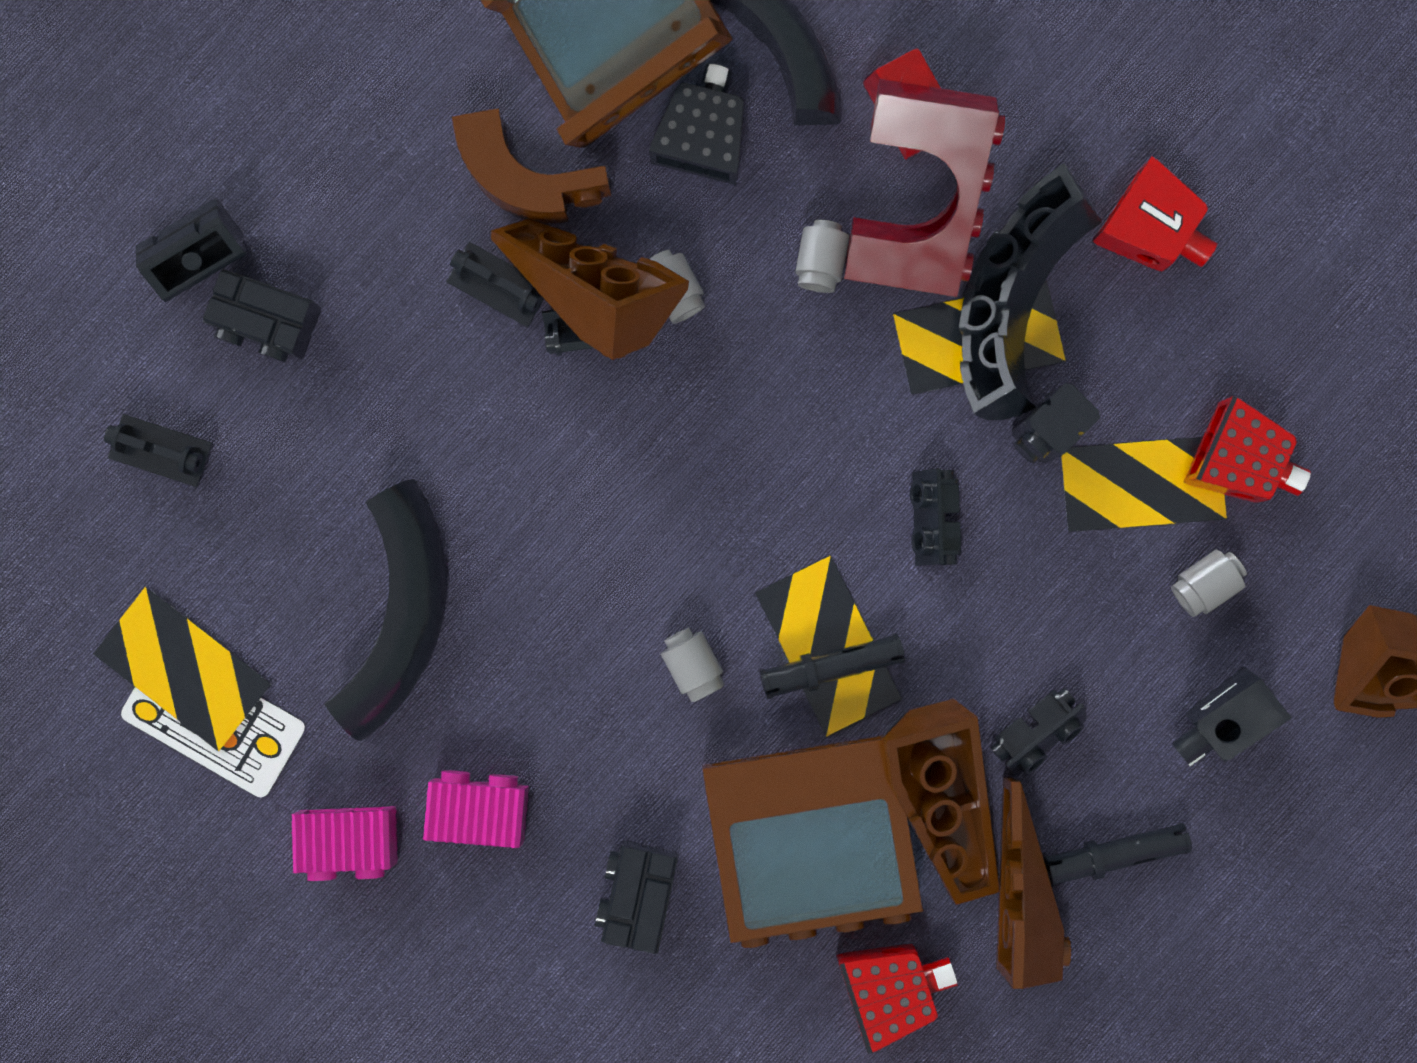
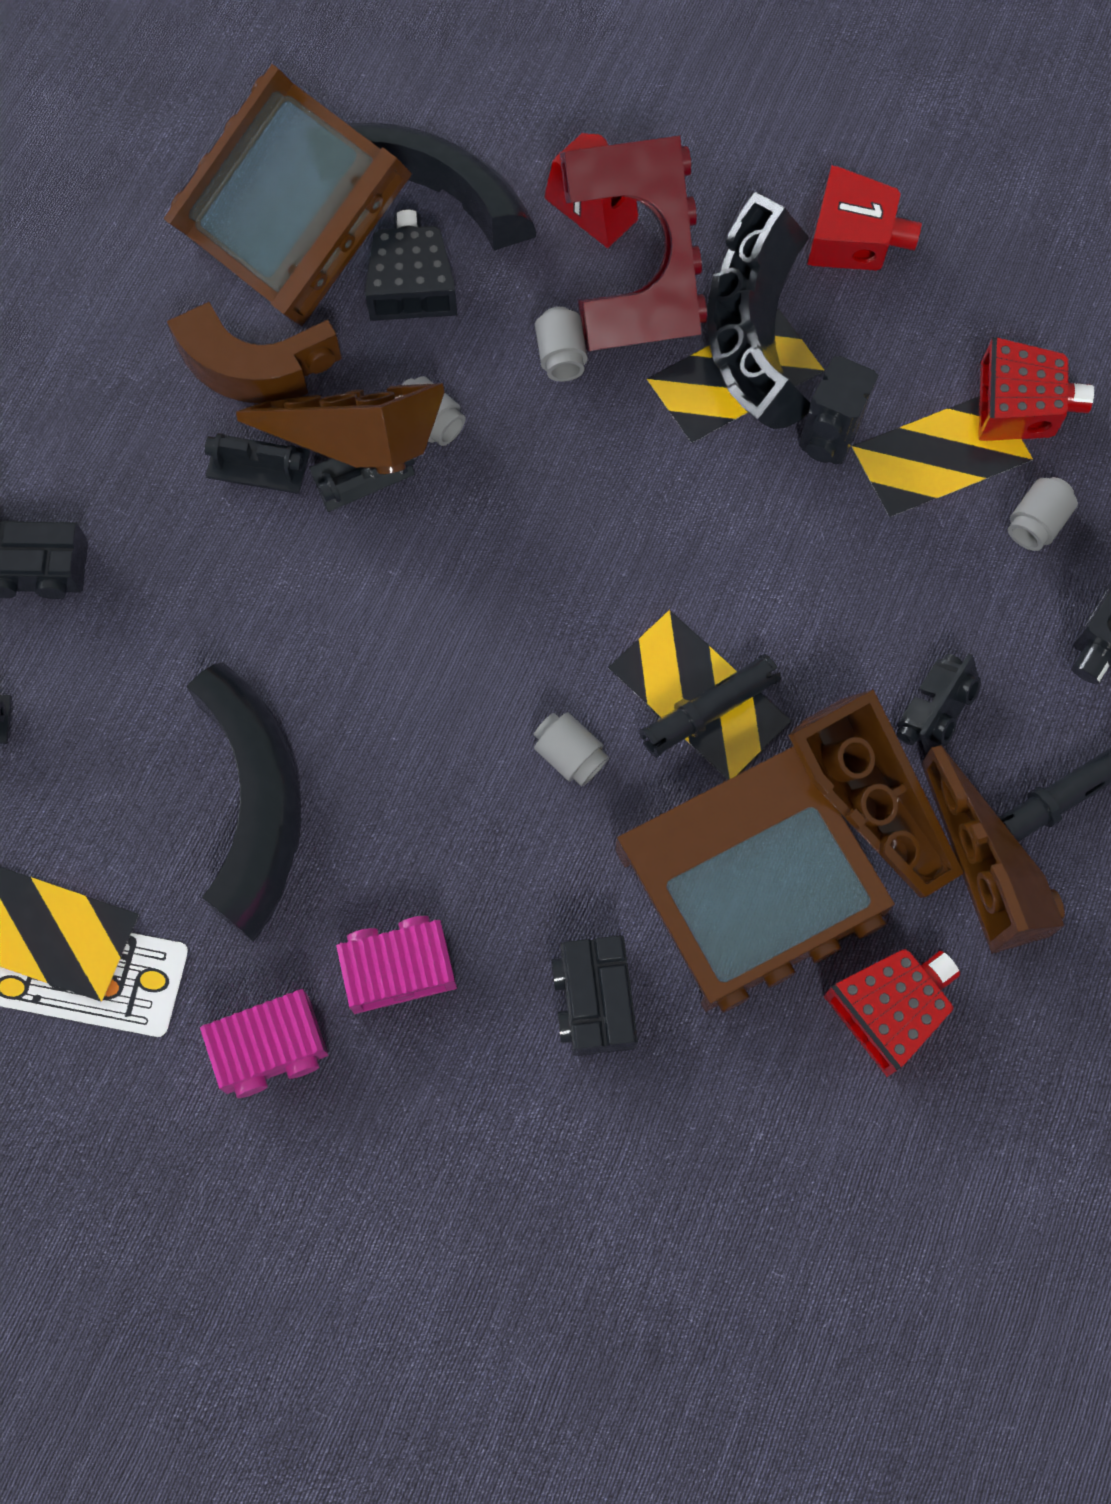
camera: 20 degrees left, 15 degrees down
(932, 496) = (749, 523): black hinge -> none

